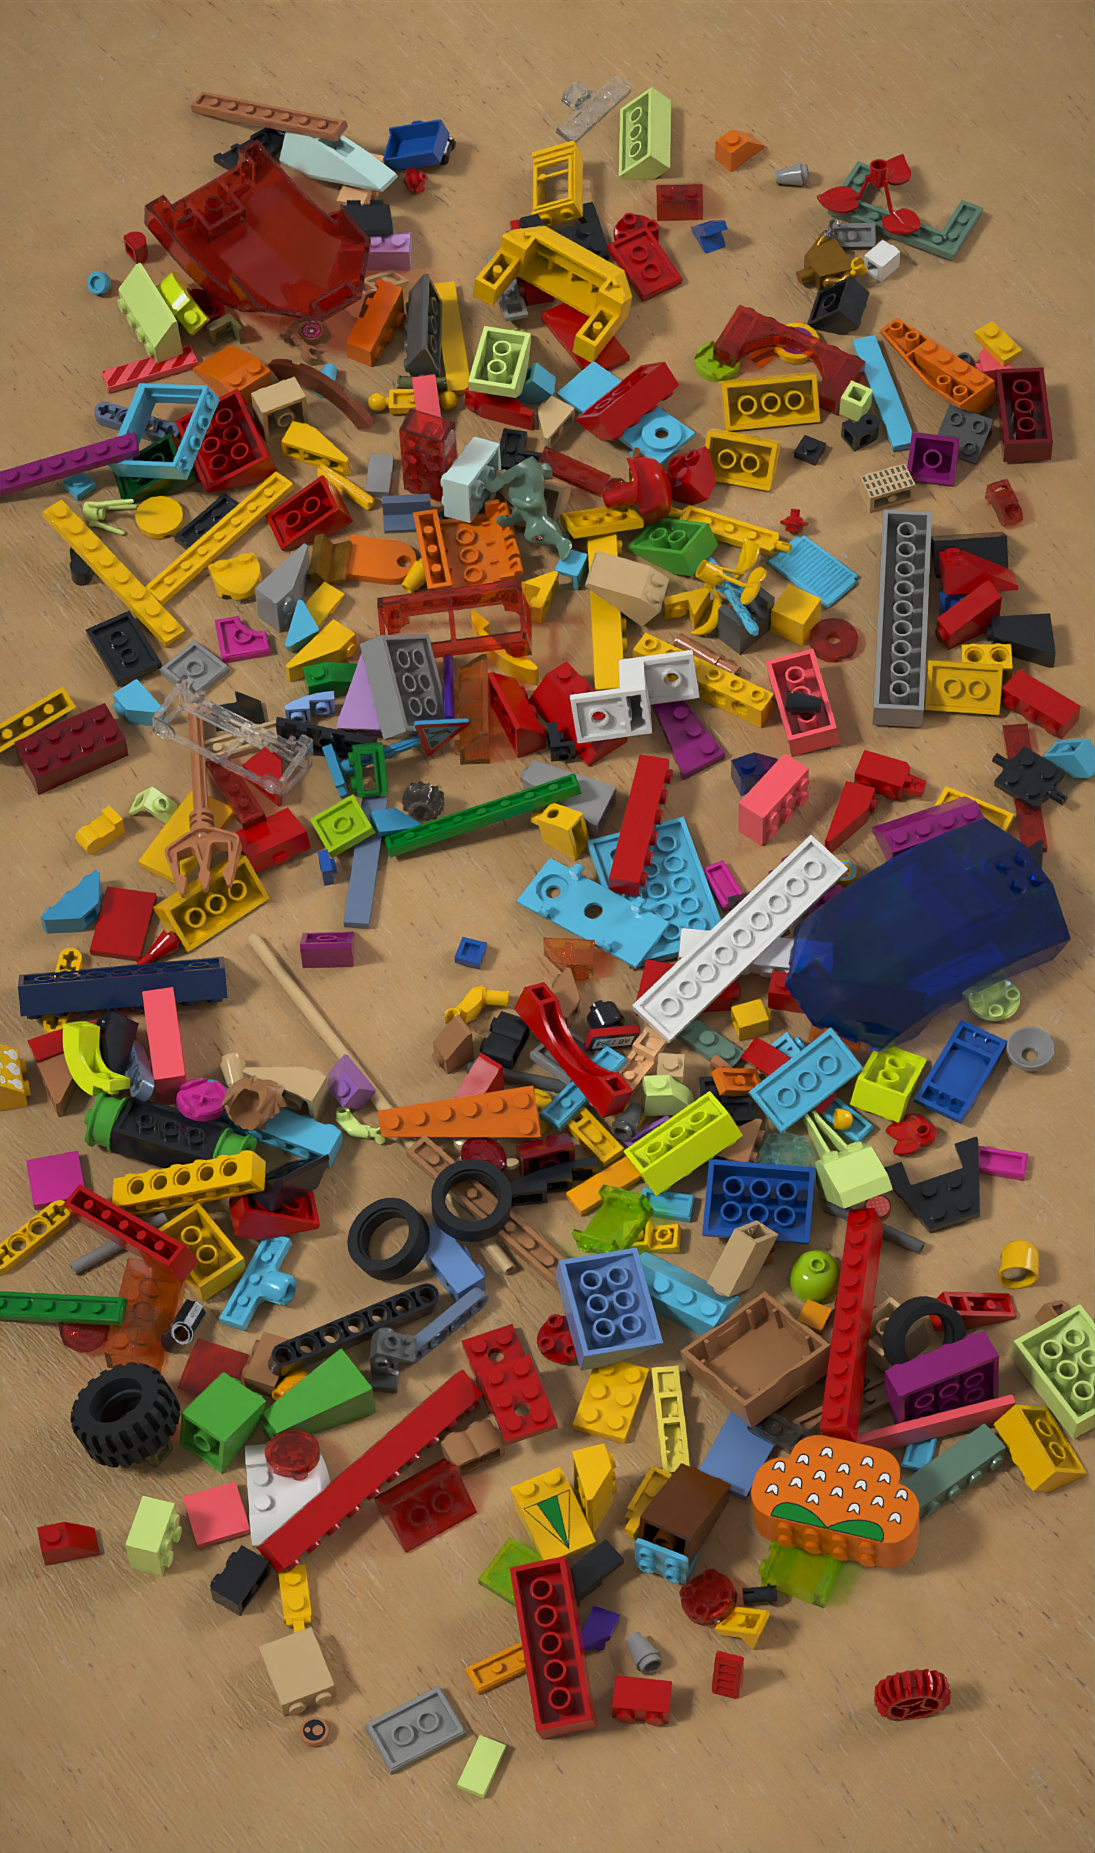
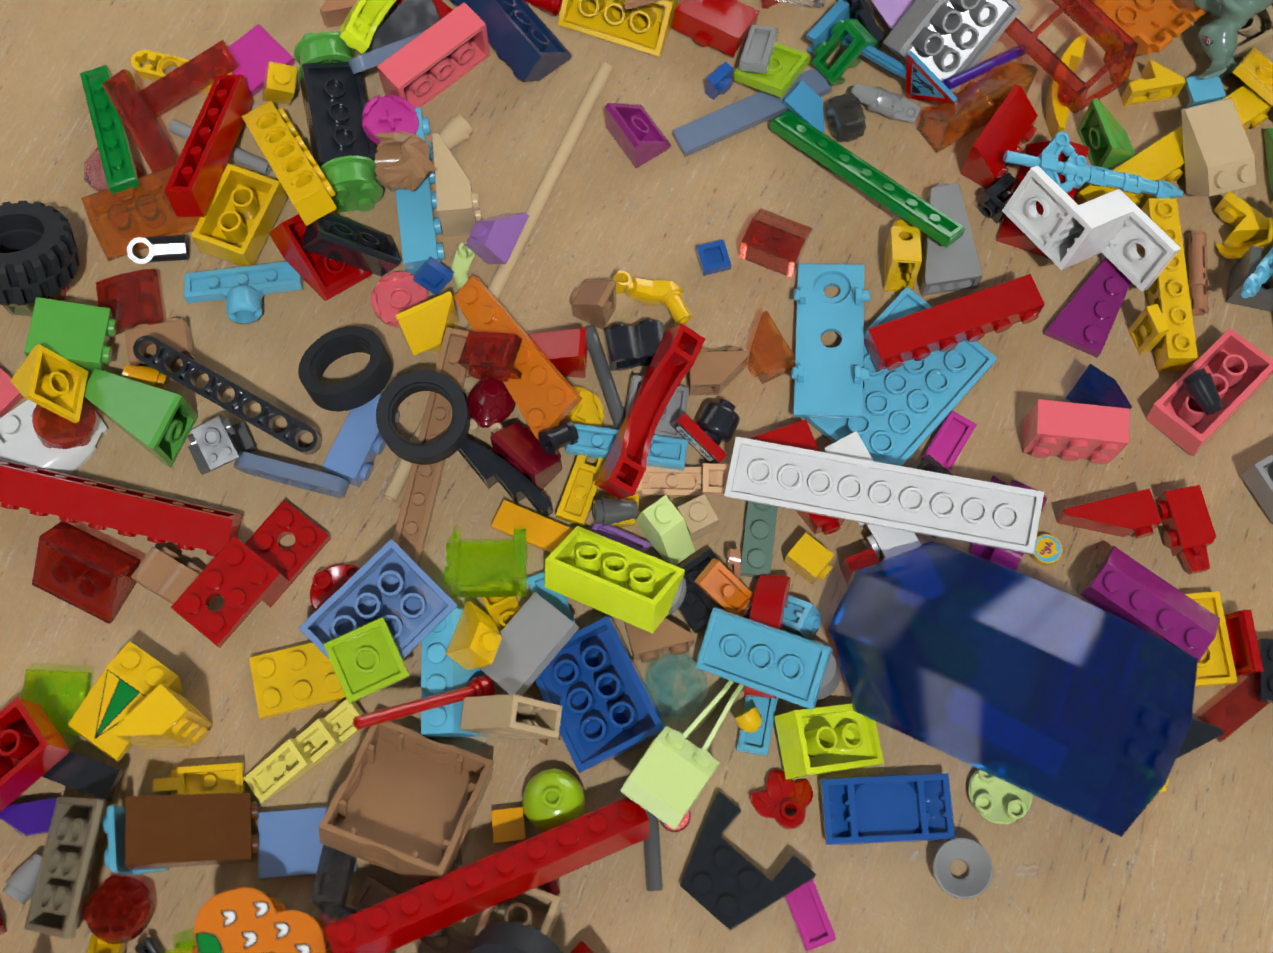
camera: 55 degrees right, 15 degrees up
(44, 1236) = (190, 78): none -> clear red plate
(62, 1281) = (140, 121): none -> clear red plate
(100, 1167) = (279, 83): none -> yellow brick
(260, 1439) = (52, 382): none -> yellow slope
(322, 825) = (758, 49): none -> light grey tile
(348, 1182) = (396, 294): none -> coral tile
(351, 1144) = (433, 276): none -> blue plate
(395, 1167) = (426, 323): none -> yellow slope
(428, 769) = (887, 103): none -> light grey hinge
(456, 1127) = (491, 355): none -> clear red bracket
(488, 905) = (774, 242): none -> clear red slope
(550, 1120) = (558, 437): none -> black bush
(558, 647) = (1104, 136): none -> bright green slope
(585, 677) = (1078, 172): none -> medium azure bar
(640, 1321) = (366, 660): none -> lime plate
(660, 1598) = (66, 867): none -> dark tan slope
(667, 1256) = (474, 639): none -> yellow slope
(693, 1225) = (529, 645): none -> light grey tile
(701, 1277) = (477, 687): none -> red piece
(730, 710) = (1148, 329): none -> yellow plate
(990, 793) = (1243, 643): none -> red tile

